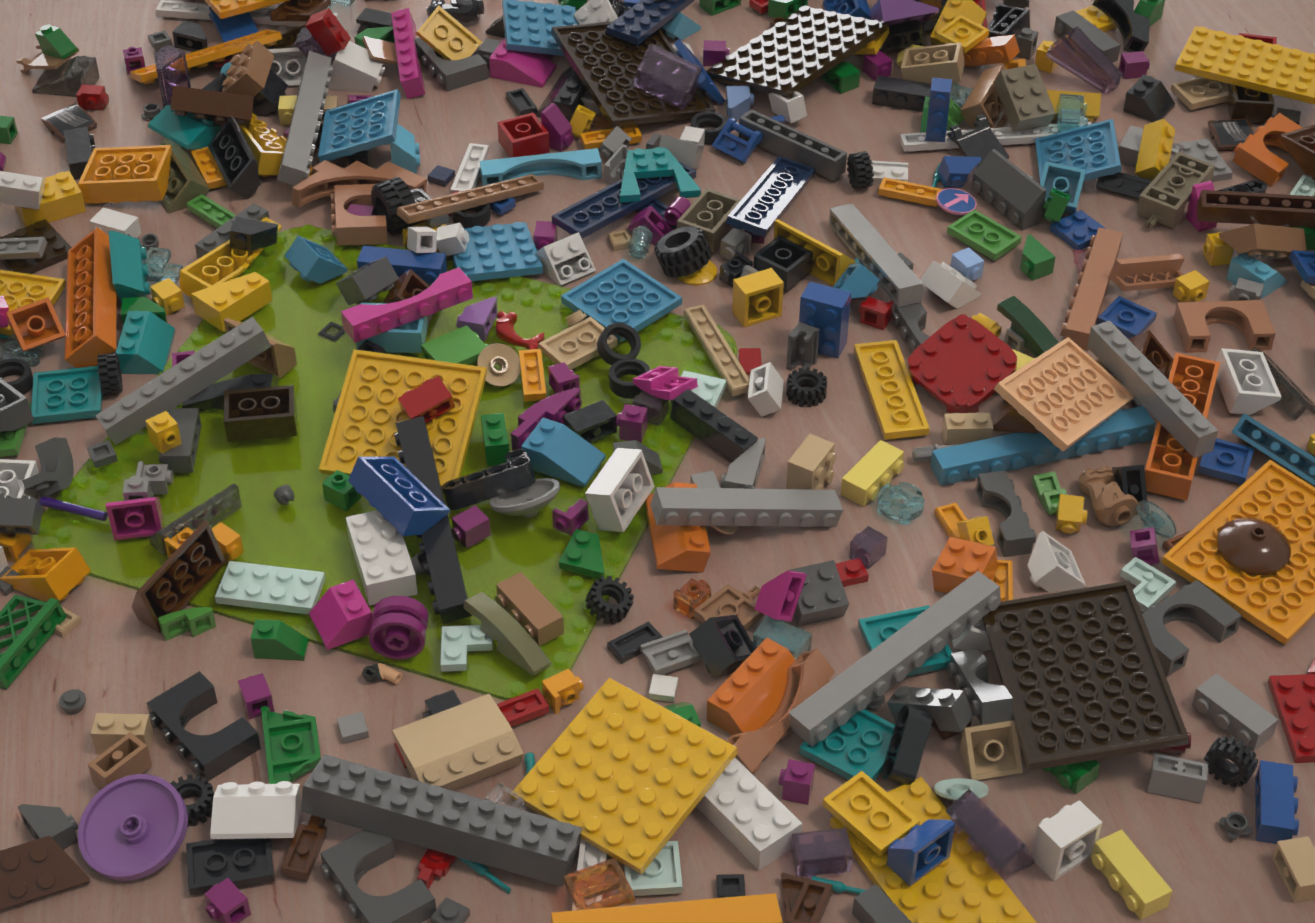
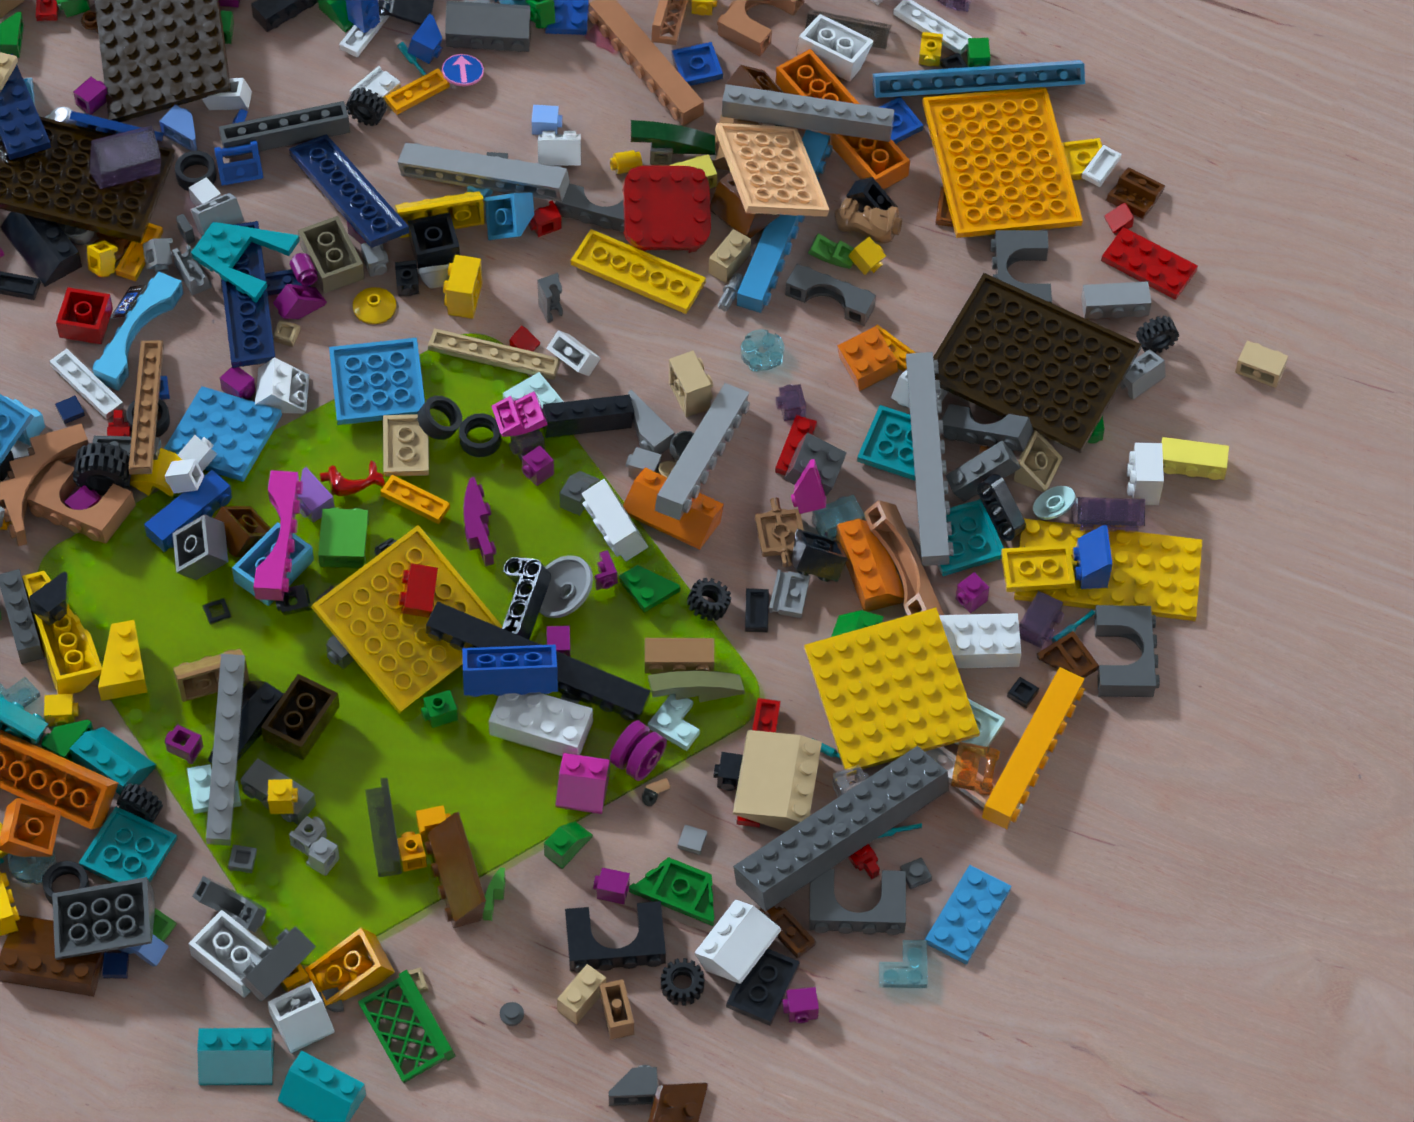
camera: 55 degrees left, 15 degrees up
(73, 508) = (290, 912): dark purple bar -> none
(132, 827) = (687, 1029): medium lavender dish -> none
(135, 518) = (350, 868): dark pink slope -> none
(270, 587) = (506, 816): light aqua plate -> none
(284, 495) = (407, 752): dark grey hinge -> none
(314, 261) = (122, 573): dark azure slope -> none
(494, 438) = (476, 569): green brick -> none
(505, 358) = (386, 515): tan dish -> none
(558, 127) = (99, 281): magenta slope -> none
(561, 689) = (771, 683): light orange brick -> none
(562, 378) = (442, 482): magenta brick -> none
(562, 453) = (528, 533): dark azure slope -> none
(575, 318) = (373, 427): tan plate -> none
(592, 421) = (511, 494): black brick -> none
(640, 242) = (311, 320): clear light blue brick -> none
(663, 688) = (816, 619): white tile -> none
(683, 251) = (348, 289): black tyre -> none
(694, 594) = (747, 545): clear orange brick -> none
(807, 378) = (588, 314): black tyre -> none
(829, 312) = (540, 257): blue brick -> none
(872, 473) = (720, 346): light yellow brick -> none
(948, 517) = (809, 332): light orange tile -> none
(976, 530) = (838, 326): yellow brick -> none
(984, 235) = (517, 81): bright green plate -> none
(1036, 259) = (577, 70): green slope -> none
(1054, 566) = (906, 303): white slope -> none
(1145, 545) = (934, 235): magenta brick -> none
(1150, 583) = (969, 257): light aqua plate -> none
(1156, 517) = (915, 209): clear light blue dish -> none
(1239, 821) = (1201, 367): dark grey plate -> none
(1253, 546) = (991, 180): reddish brown dish -> none
(1275, 802) = (1204, 337): blue brick -> none

